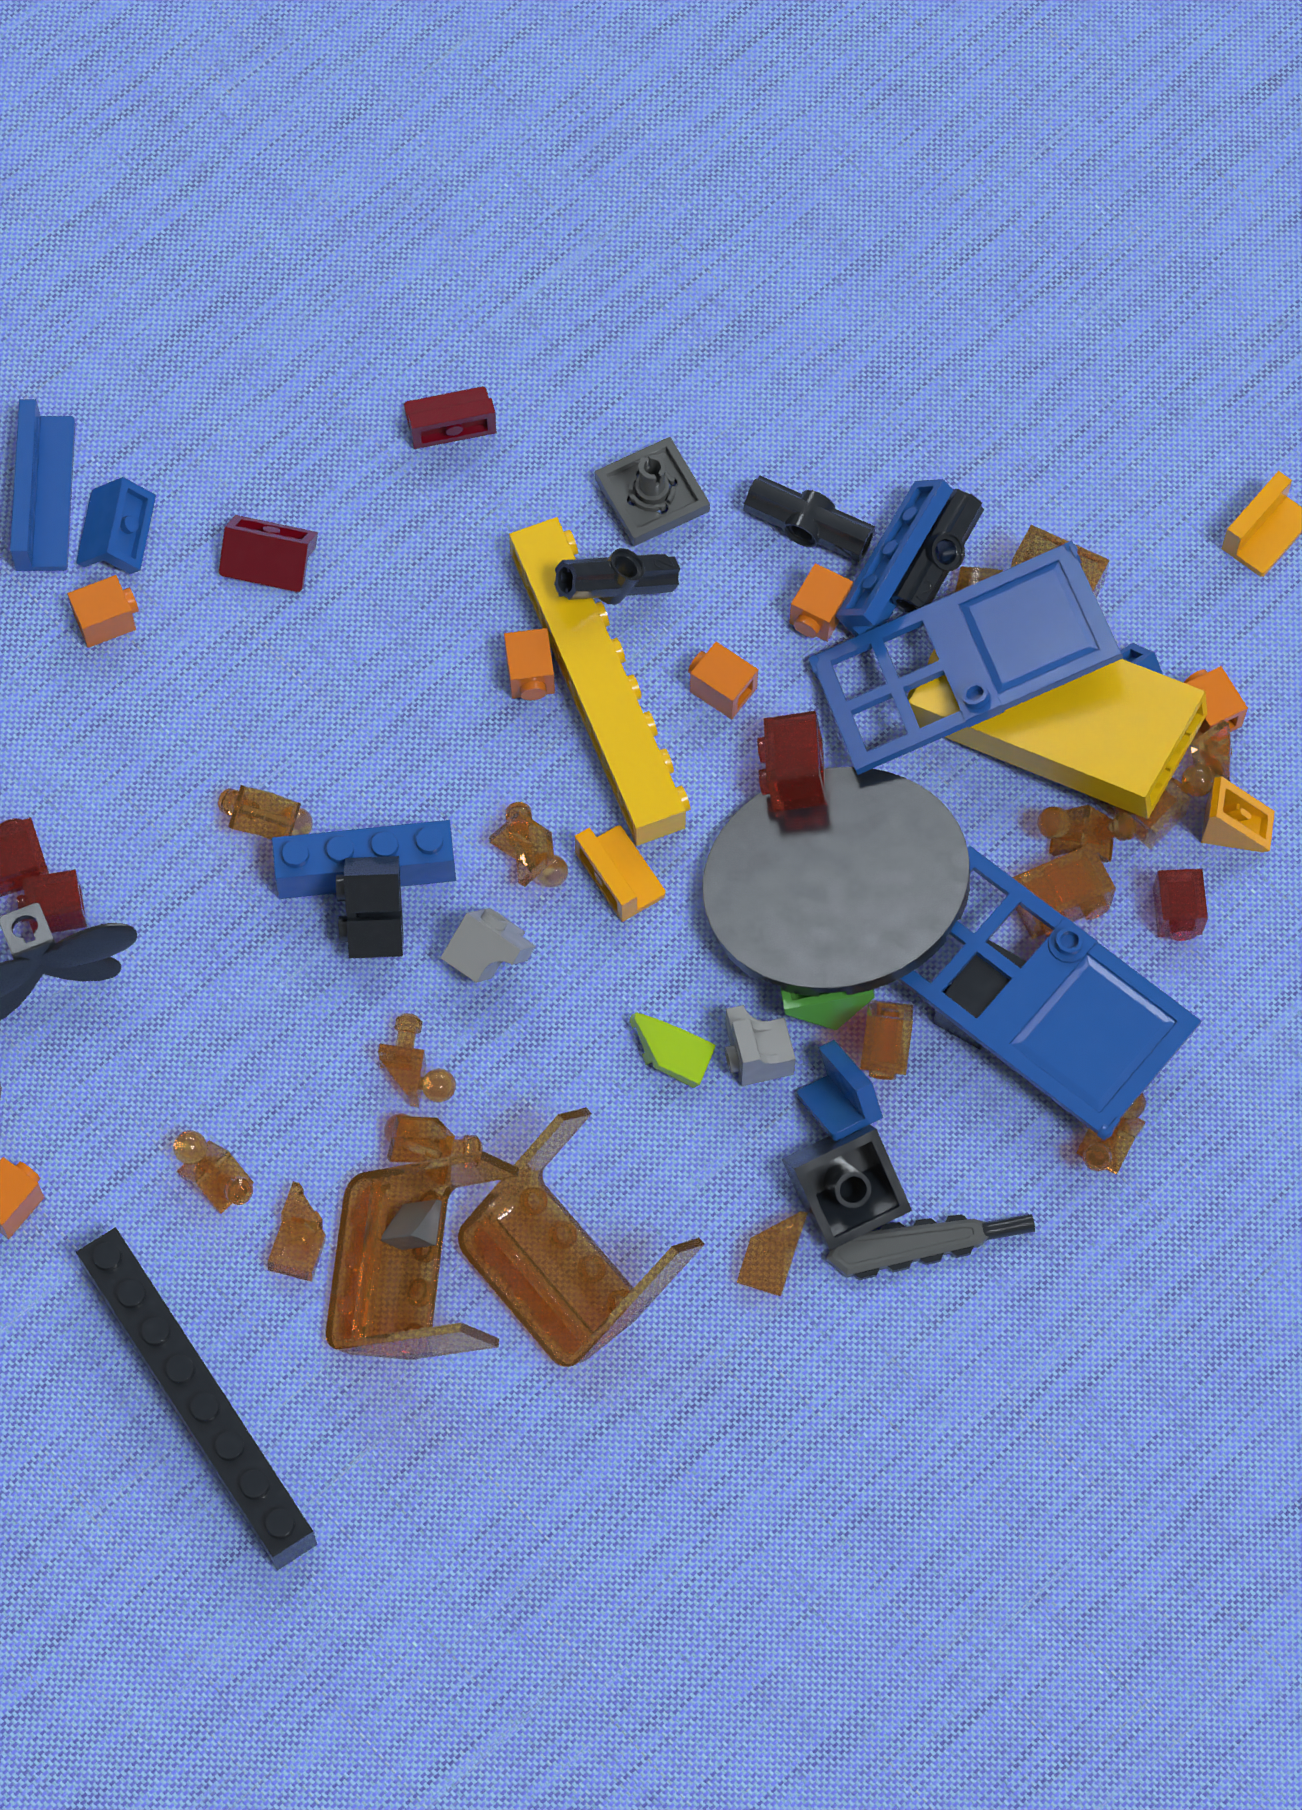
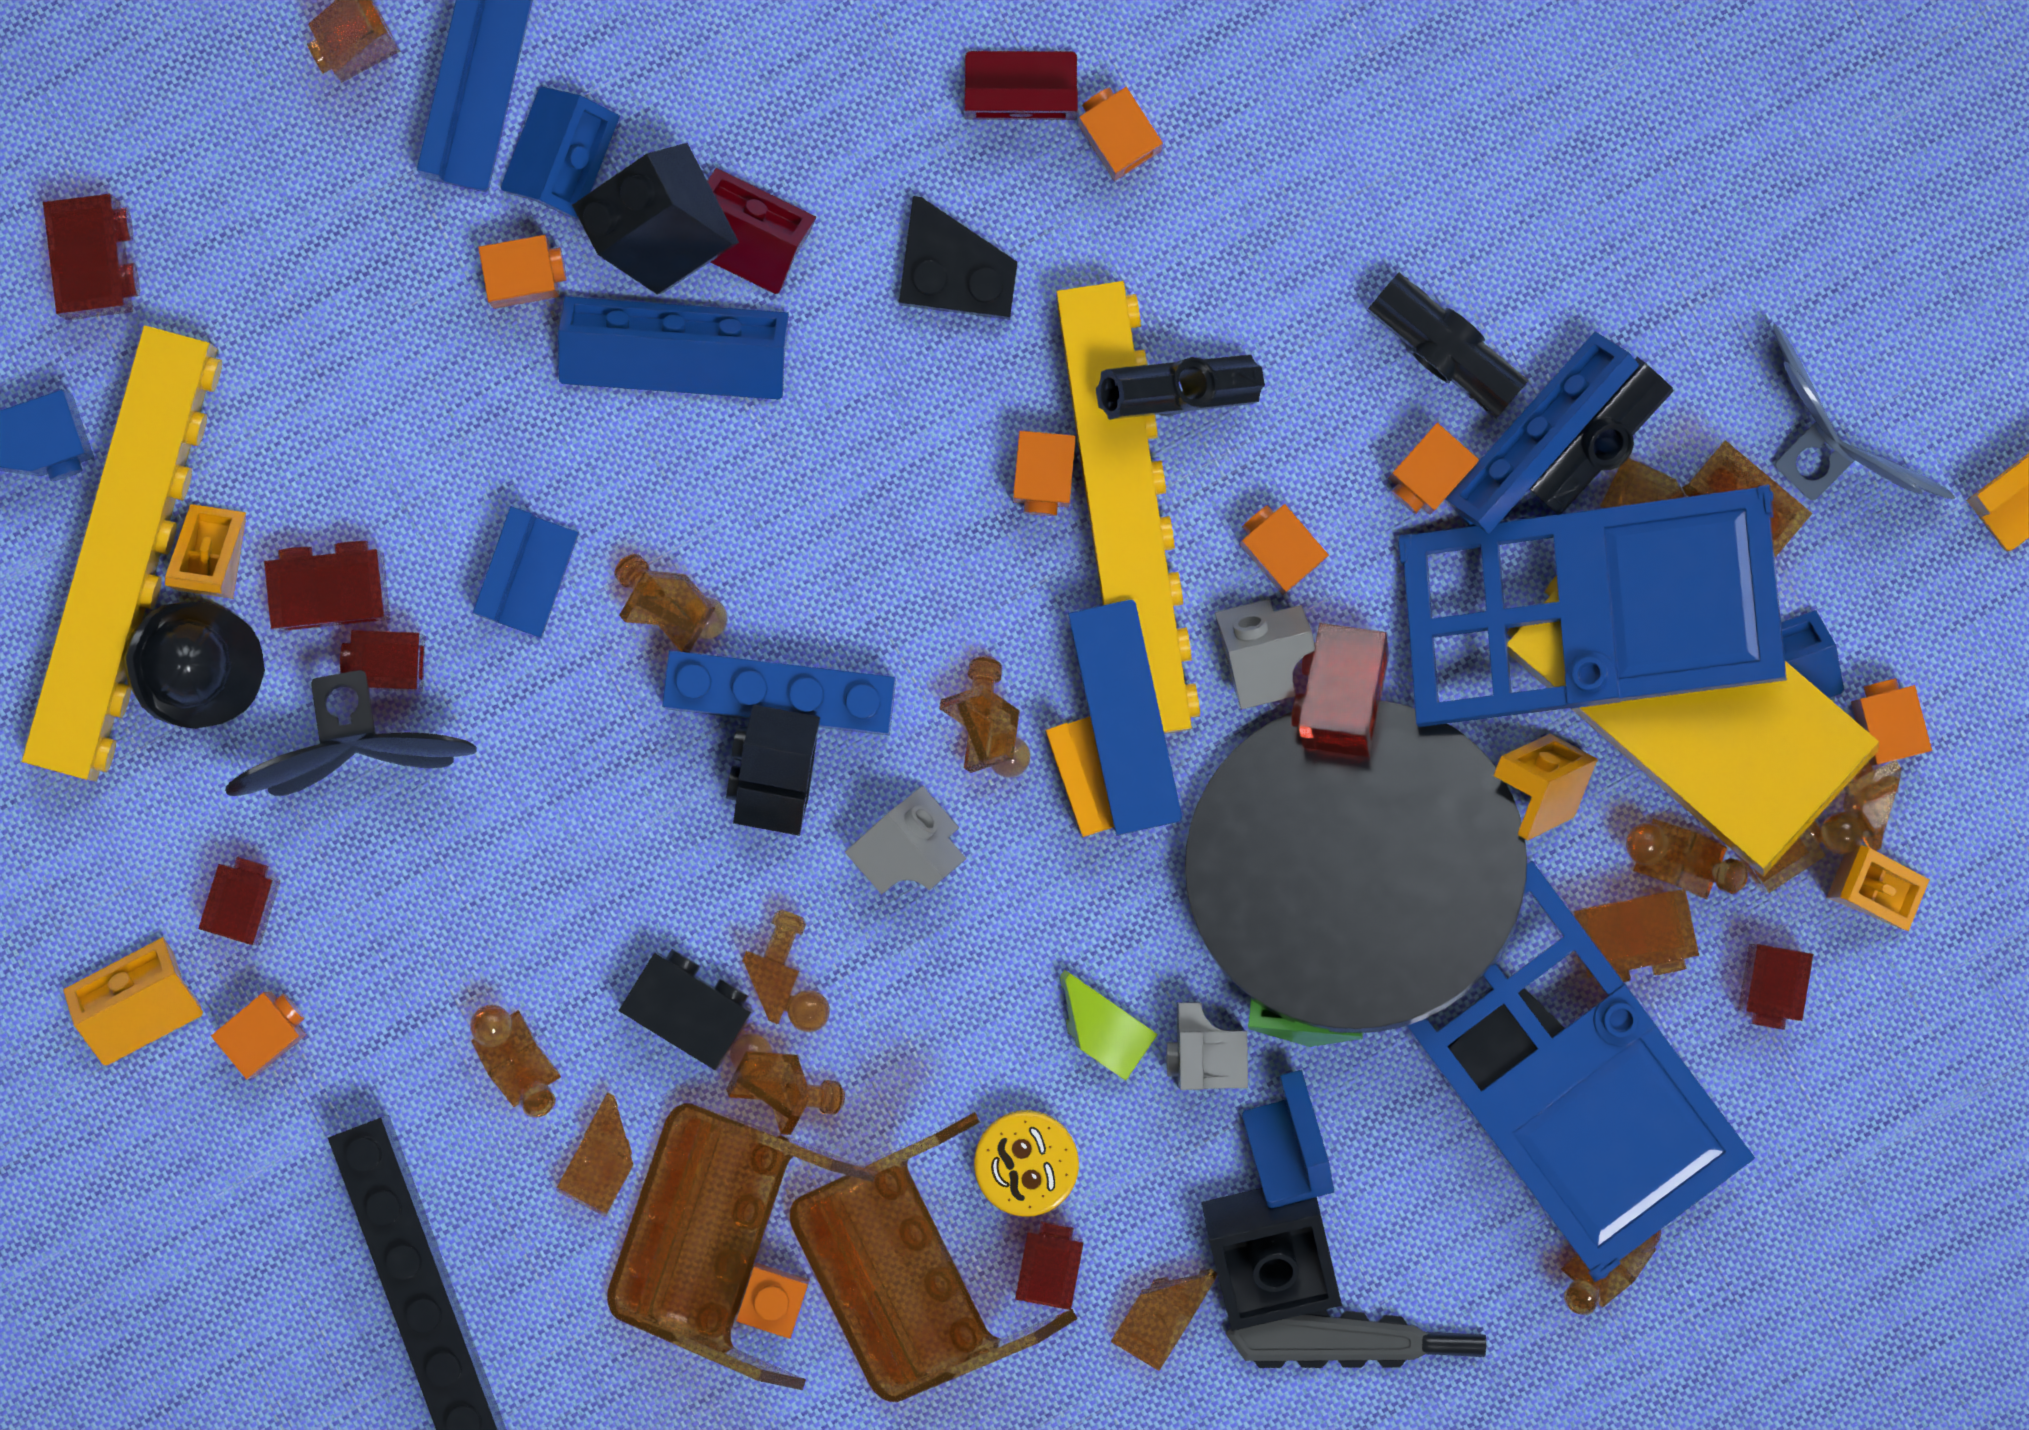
camera: 10 degrees right, 20 degrees up
(148, 821) = (525, 572): none -> blue panel
(198, 547) = (657, 219): none -> black slope
(229, 643) = (672, 347): none -> blue panel
(334, 1098) = (687, 1009): none -> black piece
(414, 1225) = (740, 1187): dark grey slope -> none
(429, 546) = (954, 267): none -> black wing
(460, 1301) = (772, 1300): none -> orange brick
(530, 427) = (1118, 131): none -> orange brick
(631, 816) = (1125, 717): none -> blue panel
(636, 1161) = (1026, 1163): none -> yellow head
(650, 492) = (1277, 222): dark grey plate -> none
(671, 1224) = (1049, 1266): none -> clear red brick
(726, 751) = (1263, 650): none -> light grey brick
(886, 1039) = (1365, 1091): clear orange brick -> none
(974, 795) = (1554, 778): none -> light orange panel
(1121, 520) = (1844, 454): none -> sand blue piece

